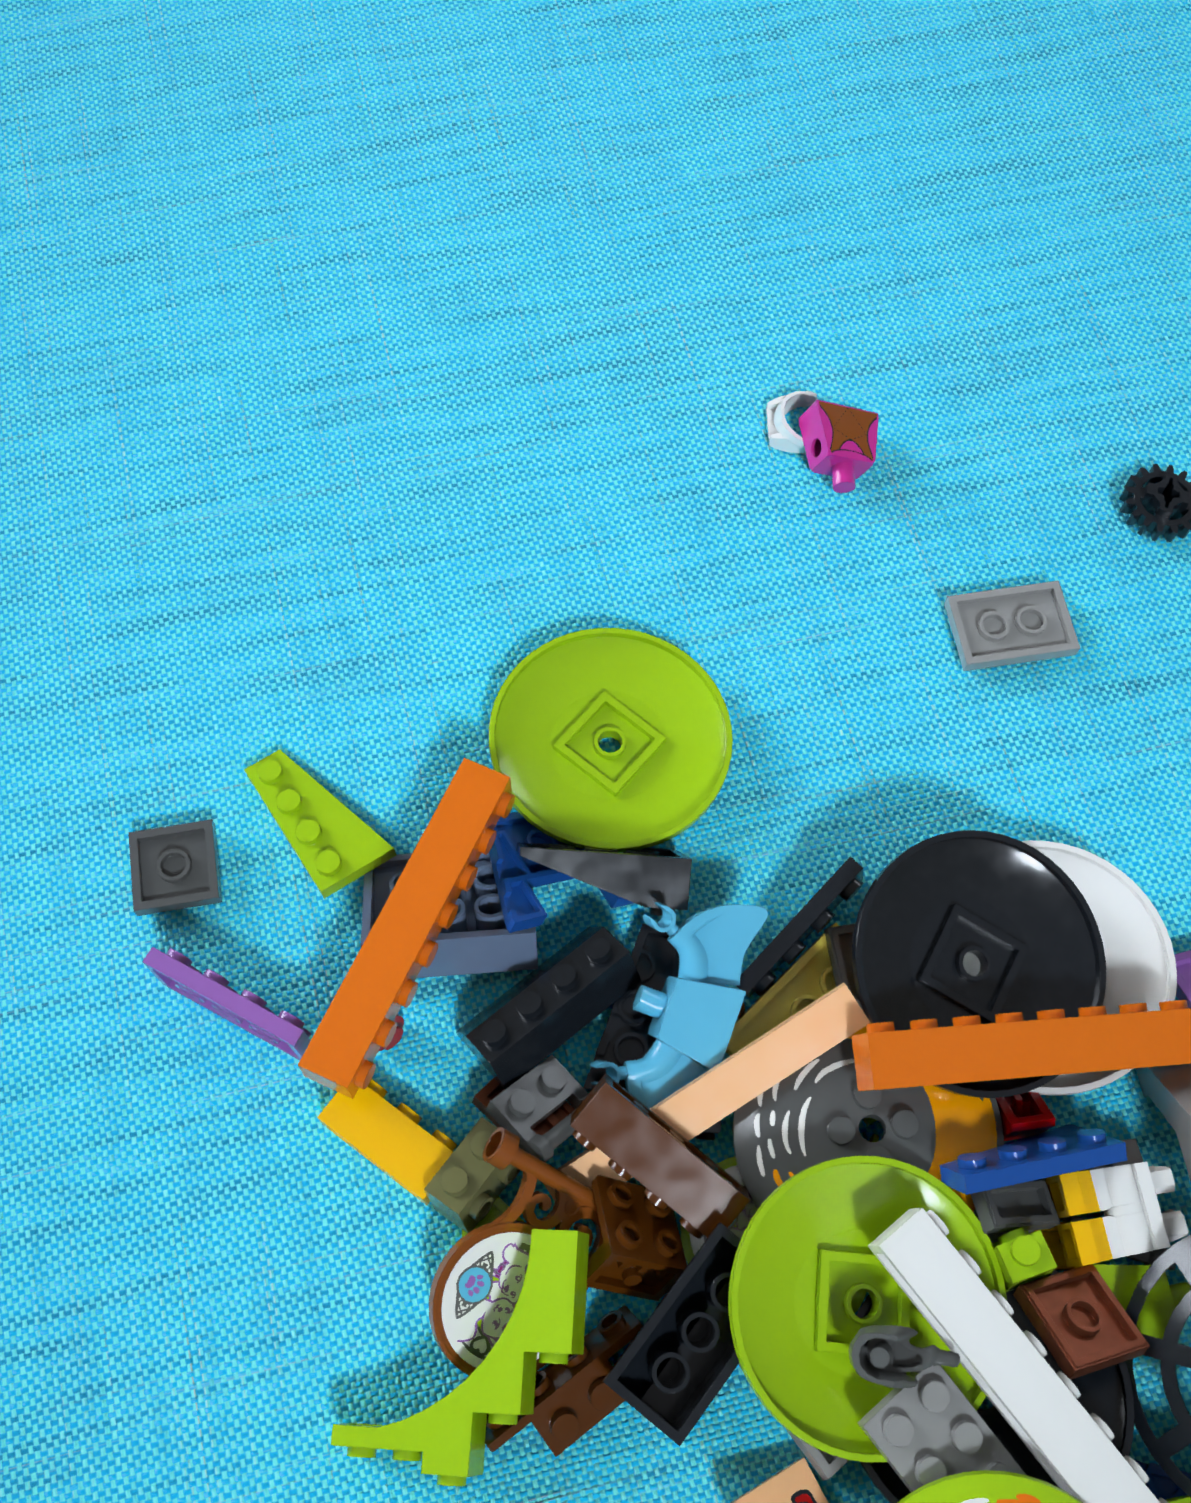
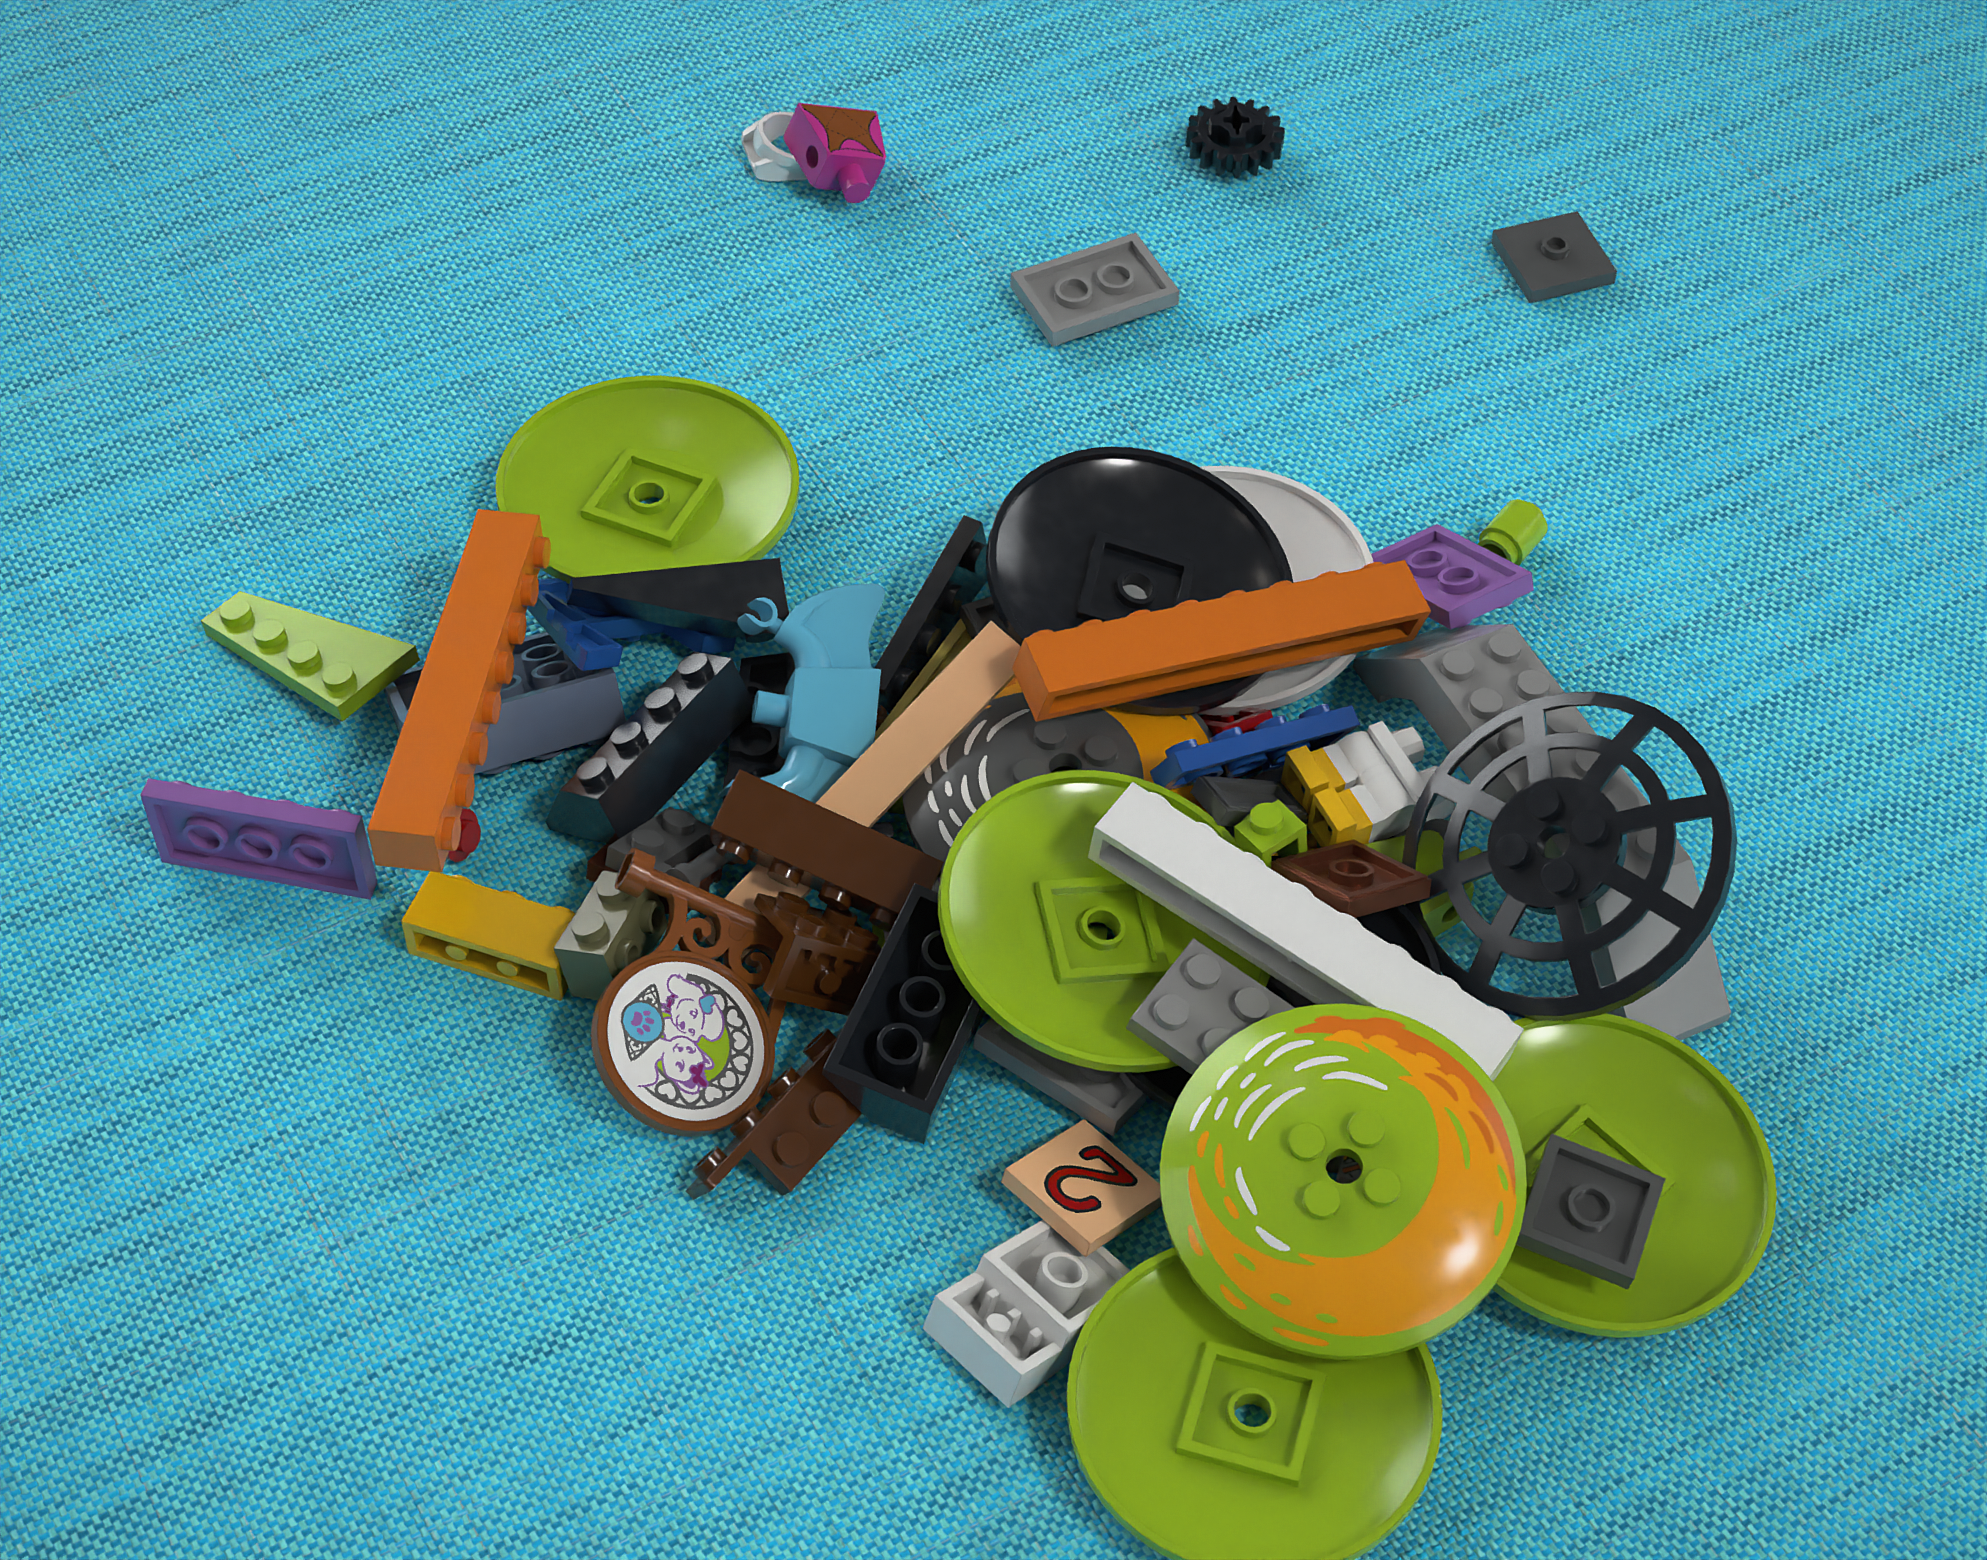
camera: 15 degrees left, 15 degrees down
(174, 867) = (143, 734): dark grey plate -> none
(544, 1320) = (702, 1110): lime arch -> none
(885, 1355) = (1136, 943): dark grey piece -> none

